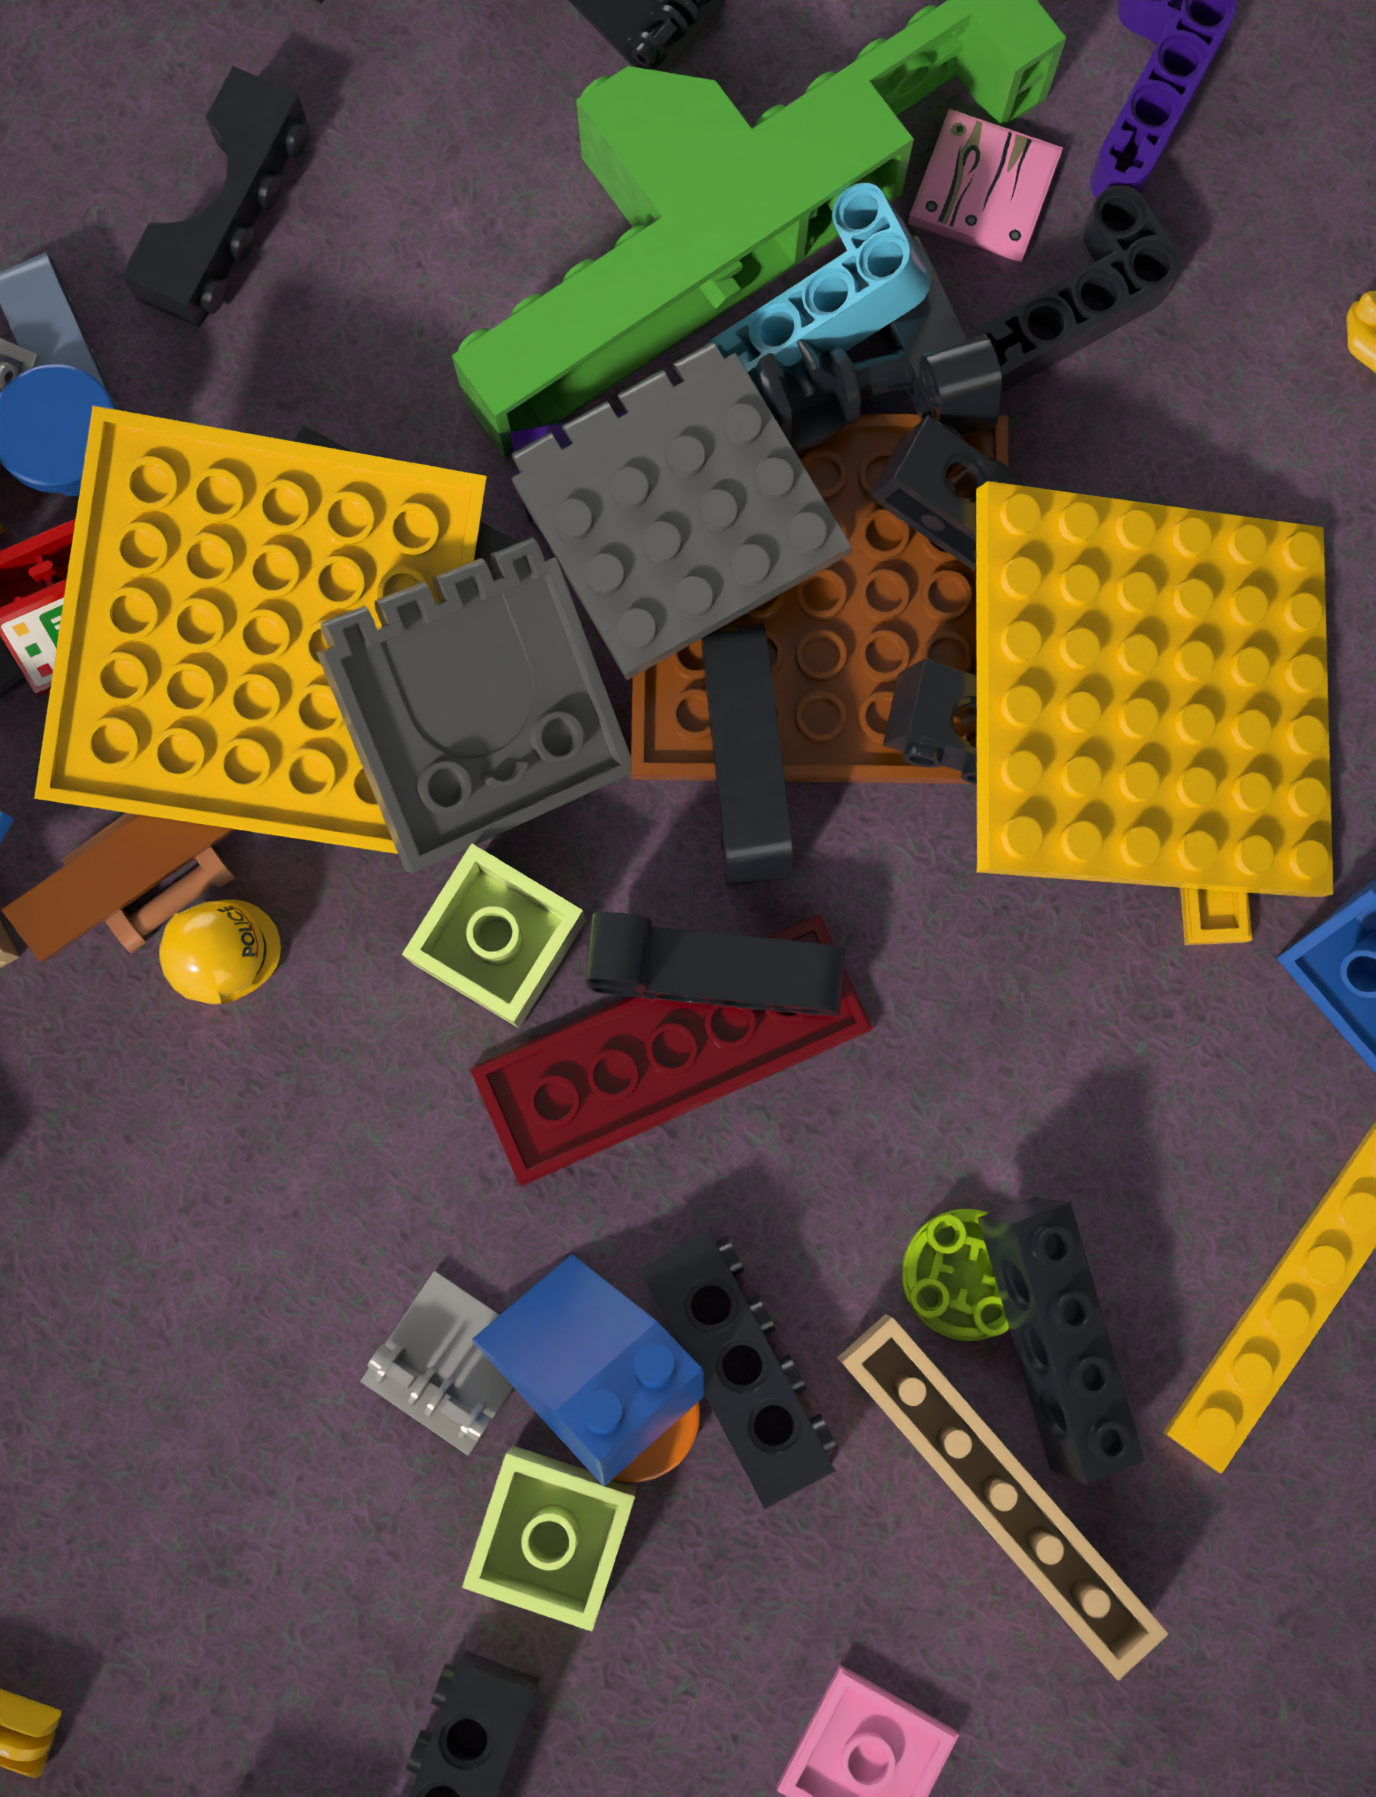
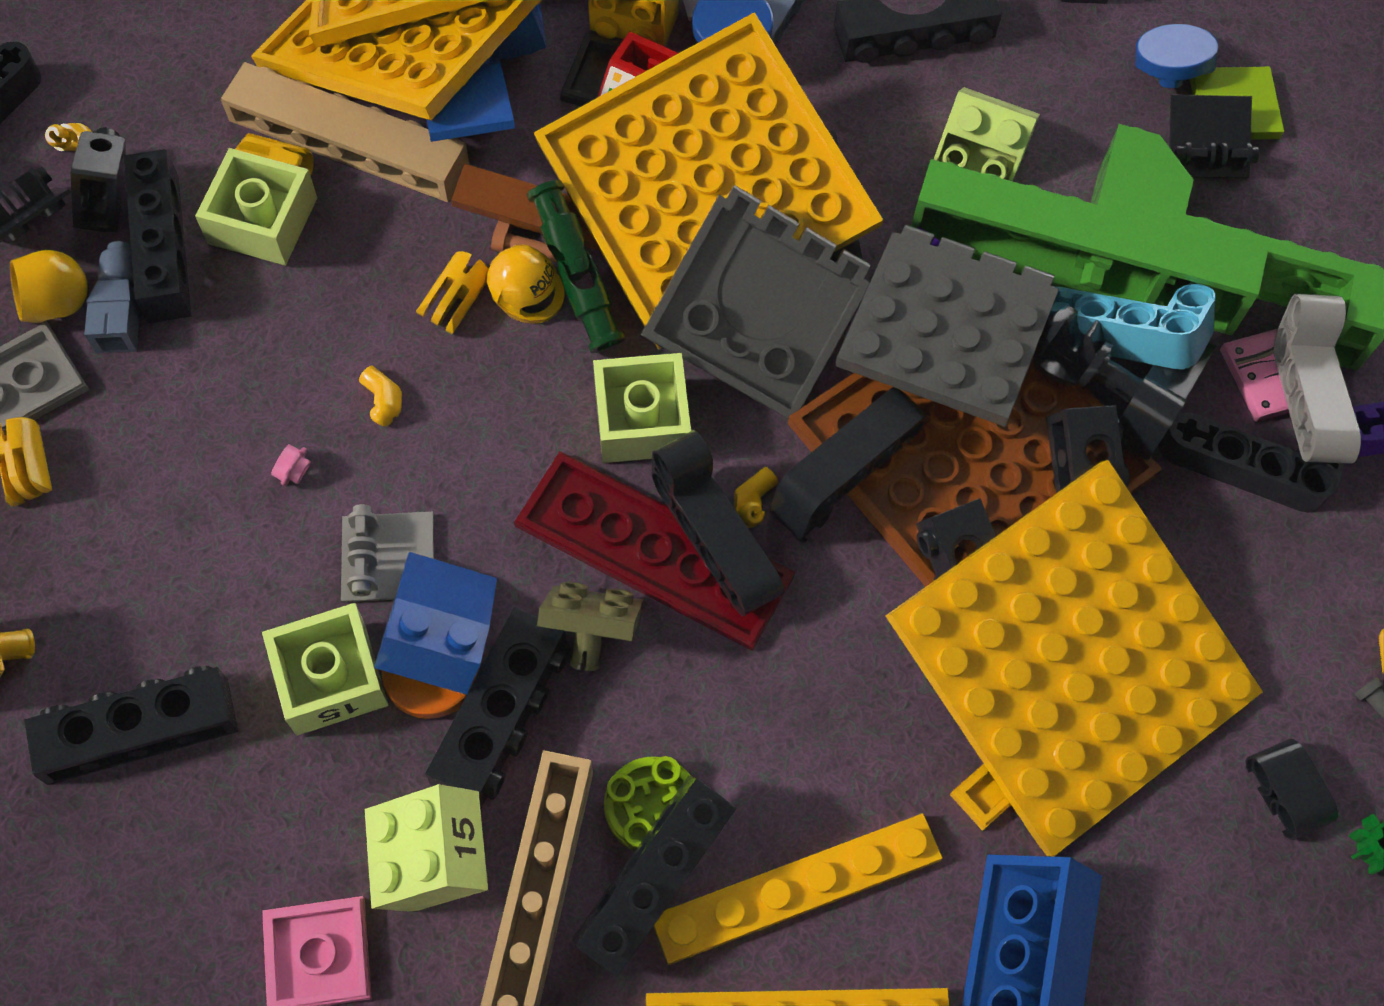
camera: 50 degrees right, 15 degrees down
(144, 1031) = (457, 285): none -> yellow arm
(212, 866) = (566, 244): none -> dark green piece
(240, 1220) = (387, 396): none -> yellow arm
(248, 1398) = (291, 465): none -> bright pink plate
(448, 257) = (986, 134): none -> yellowish green slope
(692, 897) = (748, 496): none -> yellow arm
(713, 1188) = (590, 617): none -> olive plate
(855, 1570) = (425, 849): none -> yellowish green brick
(1048, 167) = (1314, 380): none -> light grey beam
(1171, 1182) = (796, 888): none -> yellow plate

